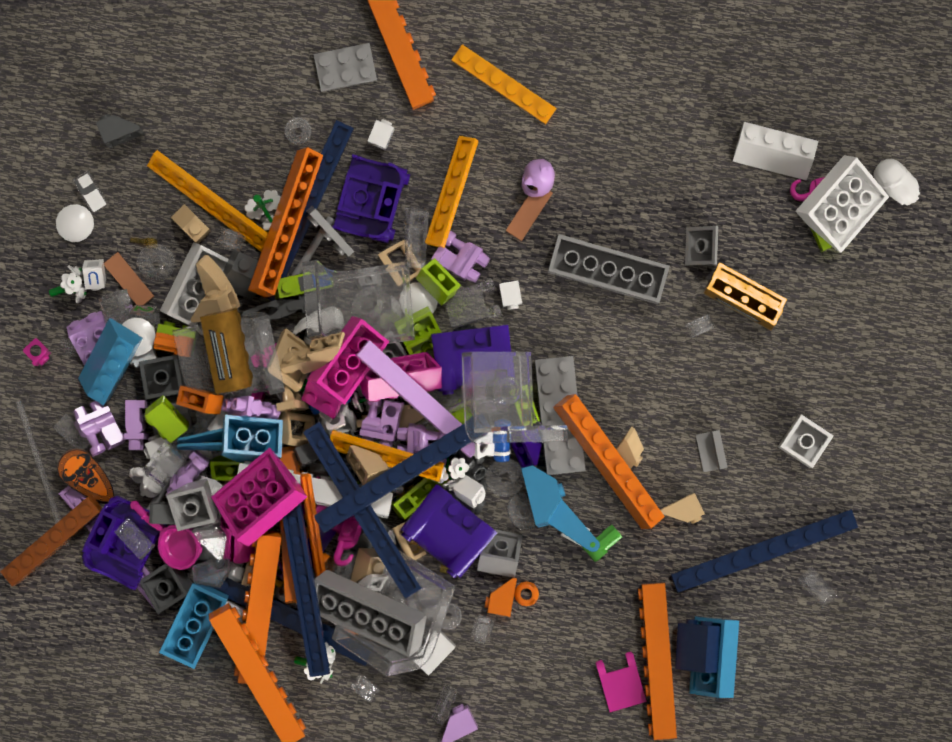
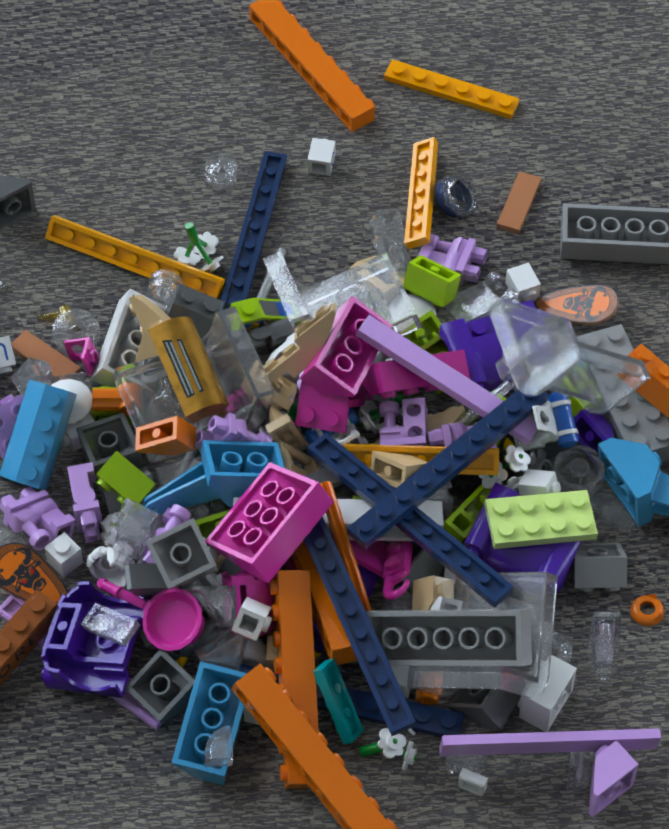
camera: 10 degrees left, 30 degrees down
(114, 461) = (63, 554): none -> white brick
(161, 292) = (89, 355): none -> dark pink bracket
(191, 224) = (112, 282): tan slope -> none
(192, 654) = (219, 748): none -> clear brick
(234, 562) = (252, 619): none -> white brick
(284, 629) = (338, 701): none -> teal plate
(285, 222) = (229, 246): orange brick -> none
(328, 232) = (272, 238): light grey plate -> none
(345, 67) = (262, 105): light grey plate -> none
(370, 199) = (326, 220): dark purple piece -> none
(370, 706) = (472, 782): none -> white tile
(422, 696) = (547, 742): none -> lavender tile
(461, 524) = (540, 519): none -> yellowish green plate
(478, 201) = (456, 196): none -> clear hair
(501, 599) = (623, 603): orange slope -> none
(539, 174) = (520, 151): lavender piece -> none
(549, 325) = (581, 304): none -> shield

